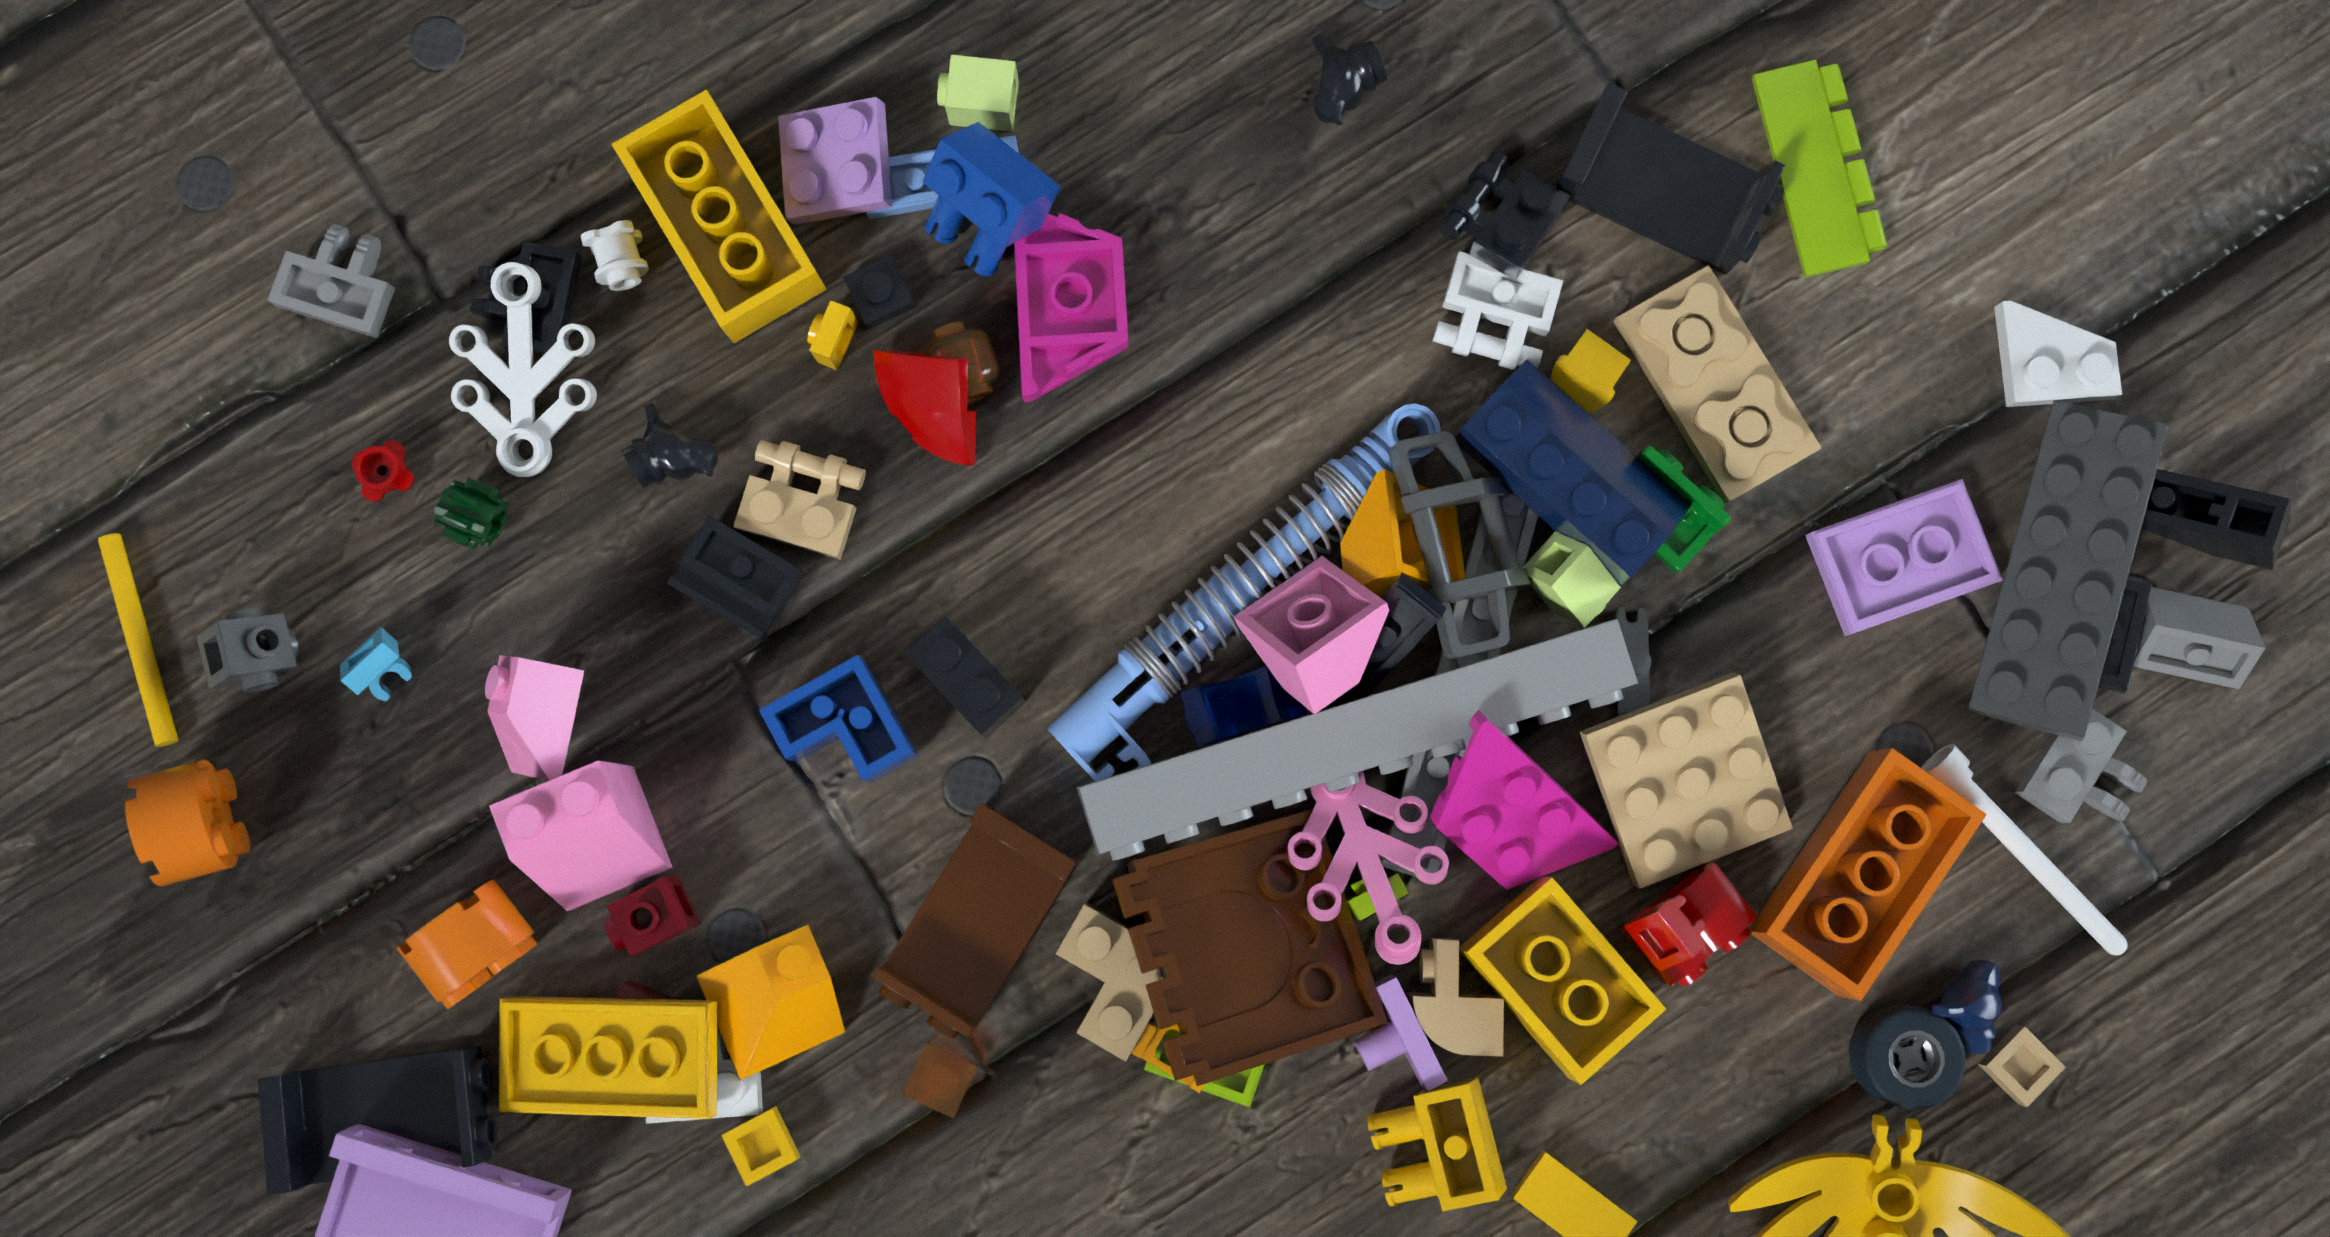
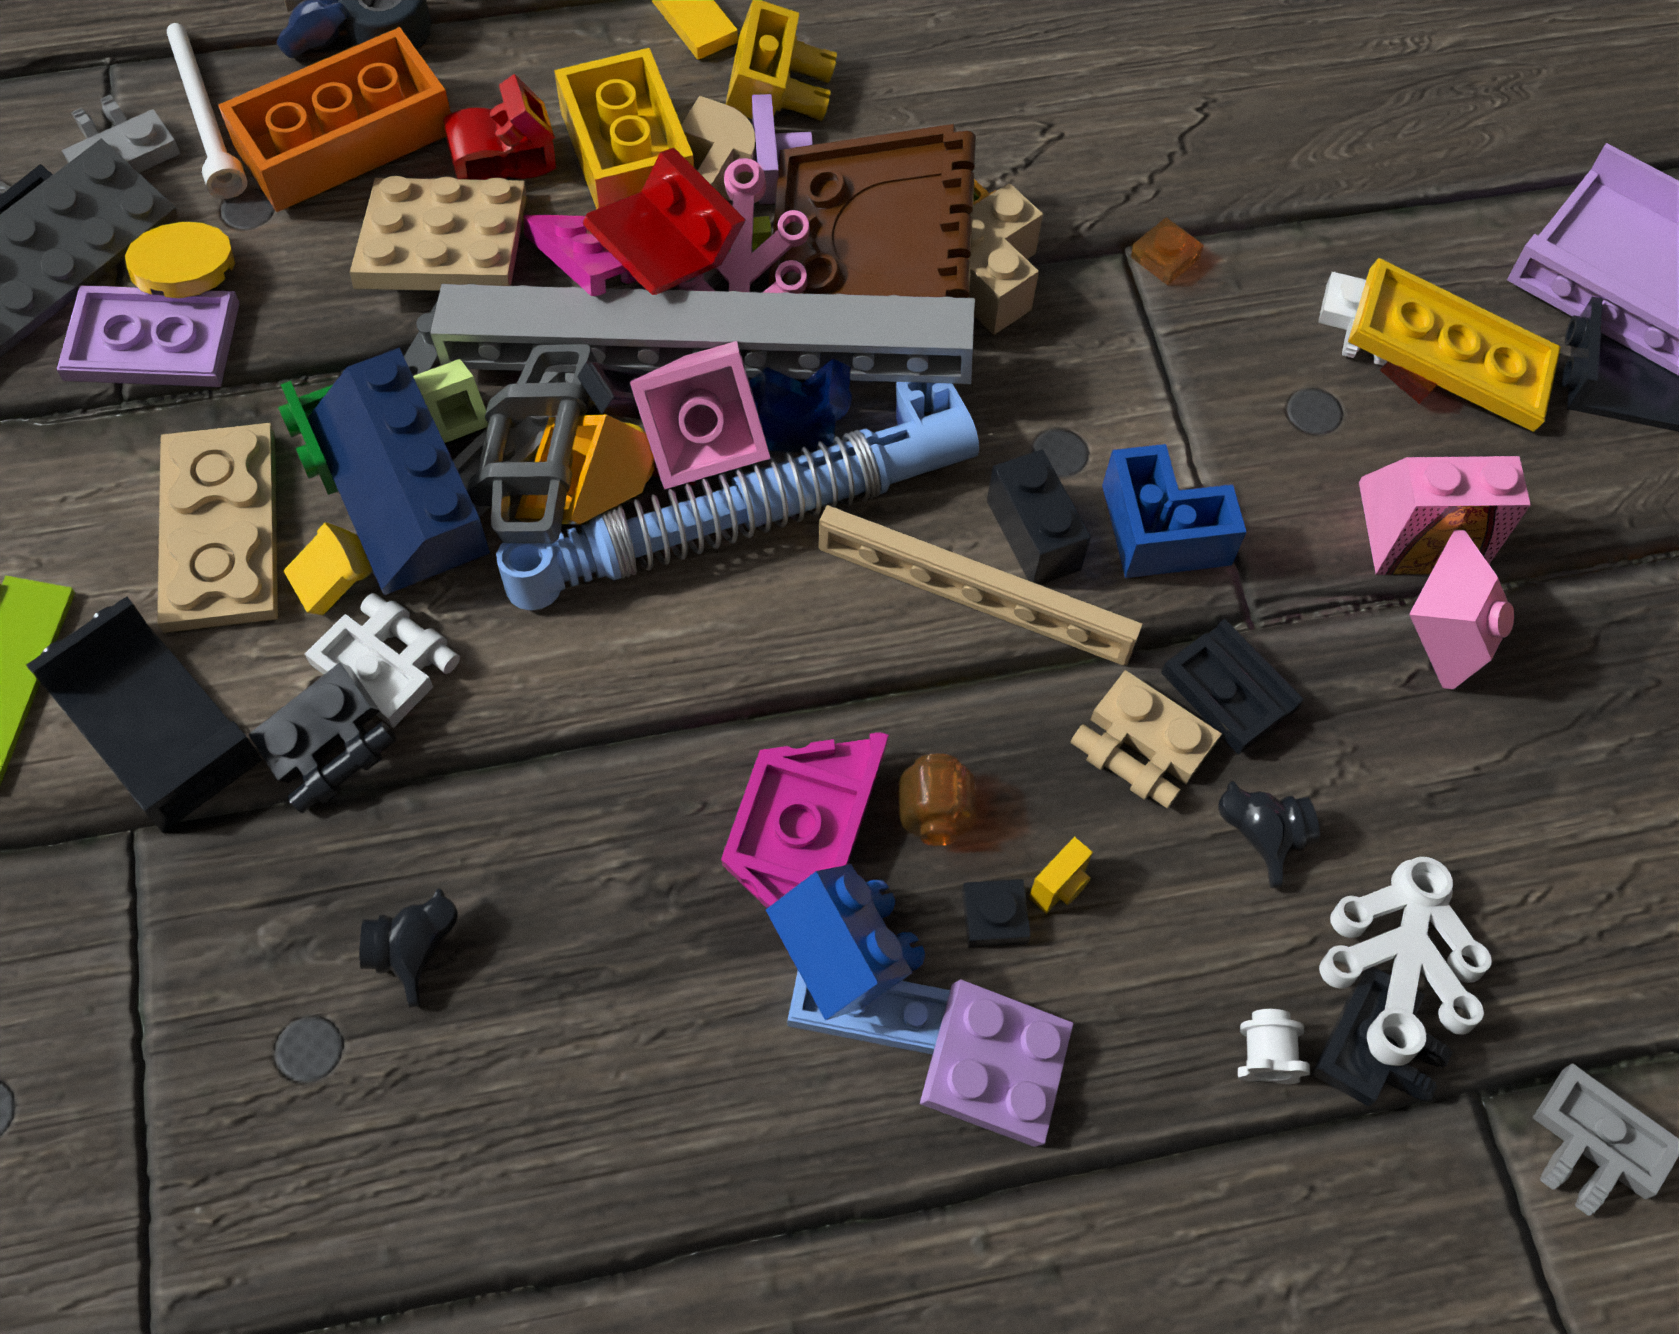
camera: 160 degrees left, 20 degrees down
(367, 466) = (1591, 913): red plate -> none
(370, 662) = (1620, 734): medium azure tile -> none
(464, 941) = (1570, 456): orange brick -> none
(471, 513) = (1491, 835): dark green gear -> none
(670, 913) = (1386, 435): dark red brick -> none
(719, 217) = (1148, 1038): yellow brick -> none
(761, 1146) = (1336, 249): yellow plate -> none
(773, 1002) = (1299, 342): light orange slope -> none
(930, 401) = (983, 772): red brick -> none
(974, 923) = (1098, 344): reddish brown panel -> none
(979, 92) = (808, 1076): yellowish green brick -> none
(998, 585) = (978, 586): none -> tan tile
(1445, 814) = (670, 227): none -> red bracket
(1924, 645) = (179, 259): none -> yellow tile

